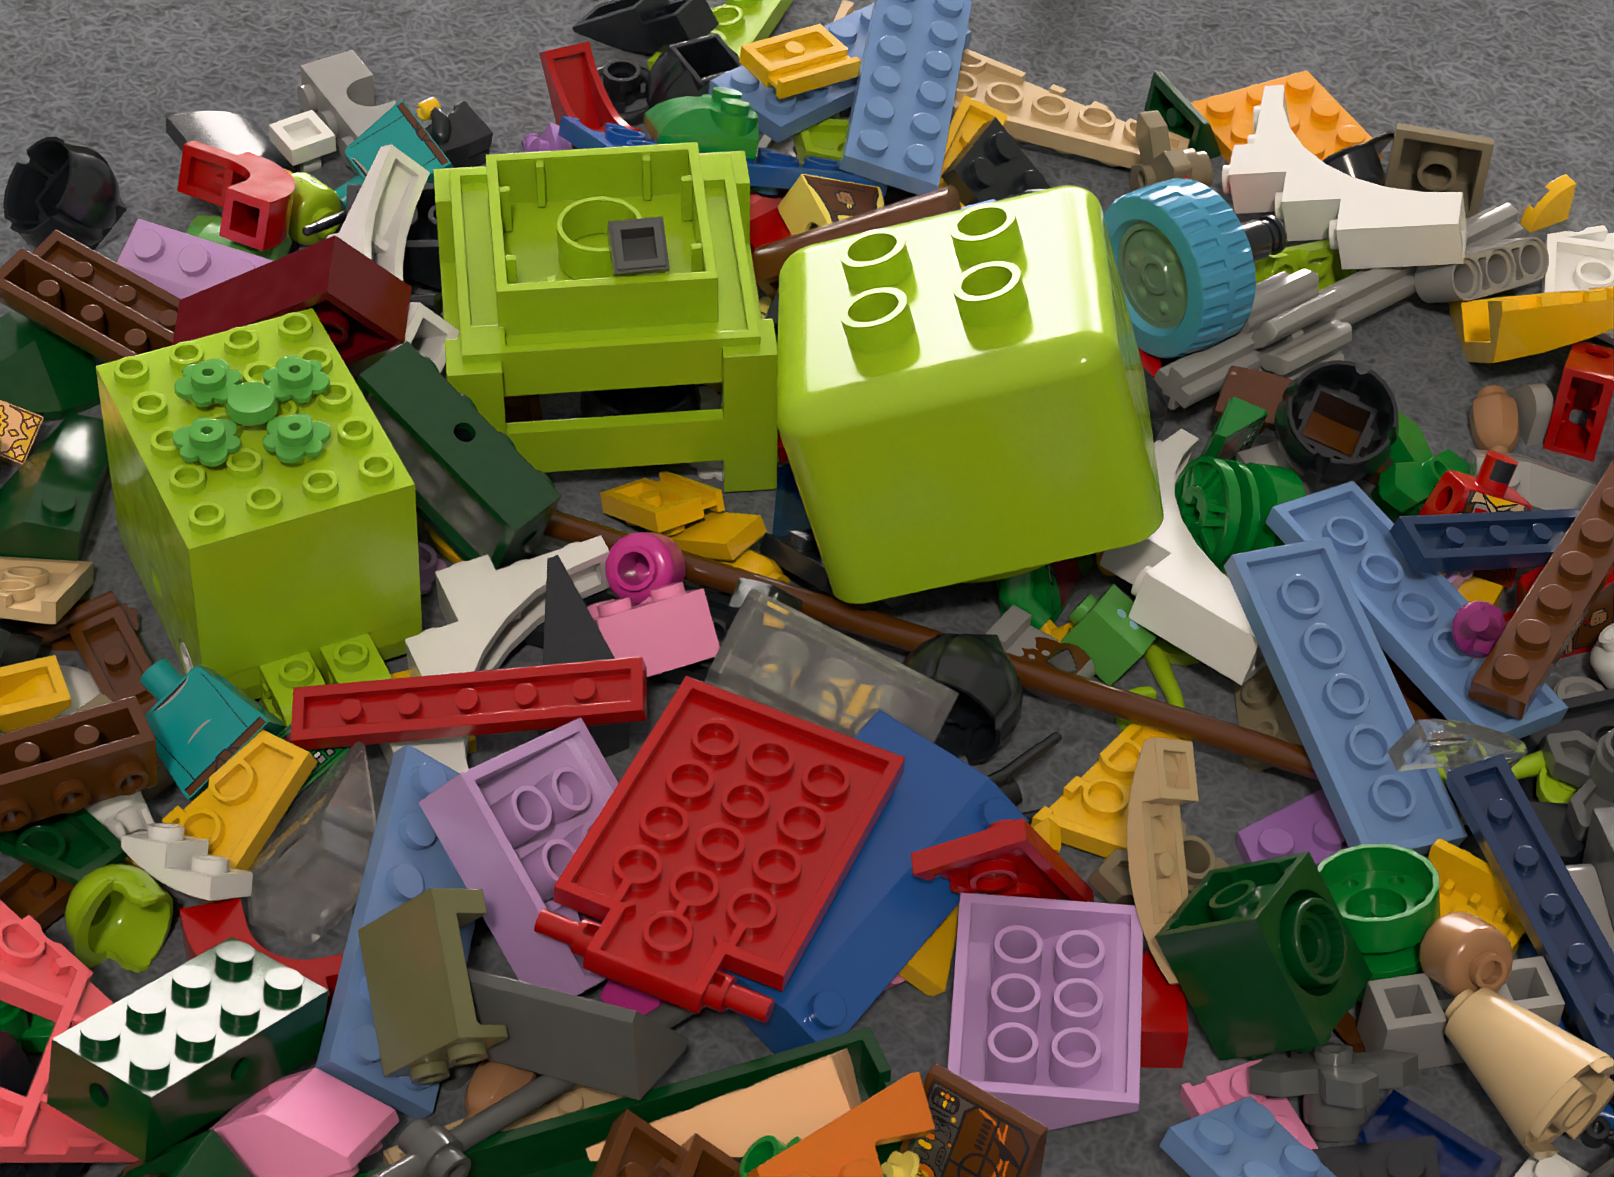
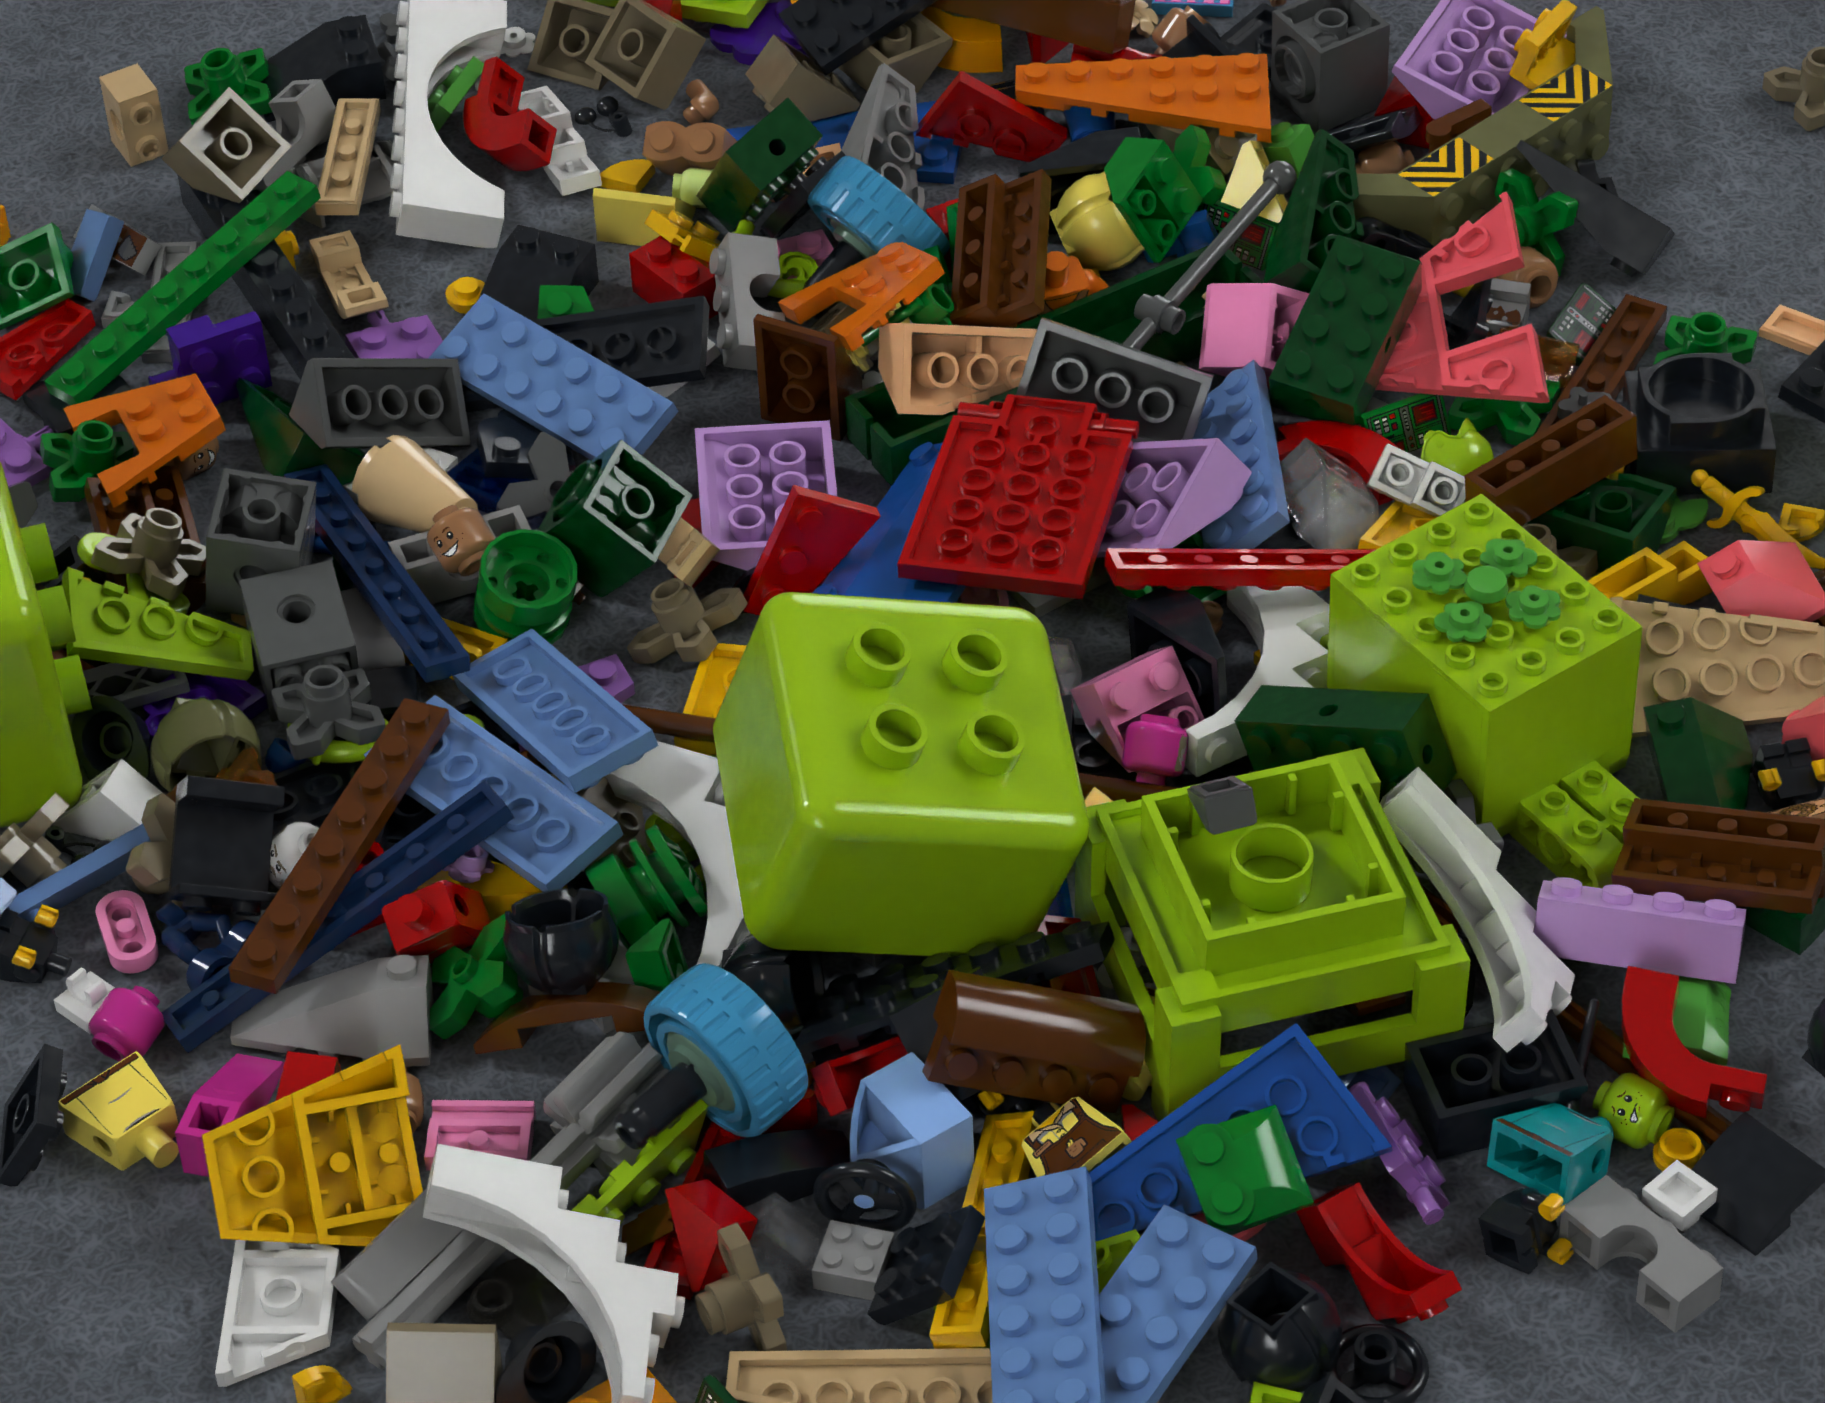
camera: 175 degrees right, 0 degrees up
(350, 293) = (1527, 787): dark red brick -> none
(423, 986) = (1203, 379): olive panel -> none
(799, 61) = (1161, 1256): yellow plate -> none
(1419, 378) = (482, 1126): none -> bright pink plate
(1452, 745) = (466, 679): clear slope -> none
(1477, 628) = (436, 753): magenta plate -> none

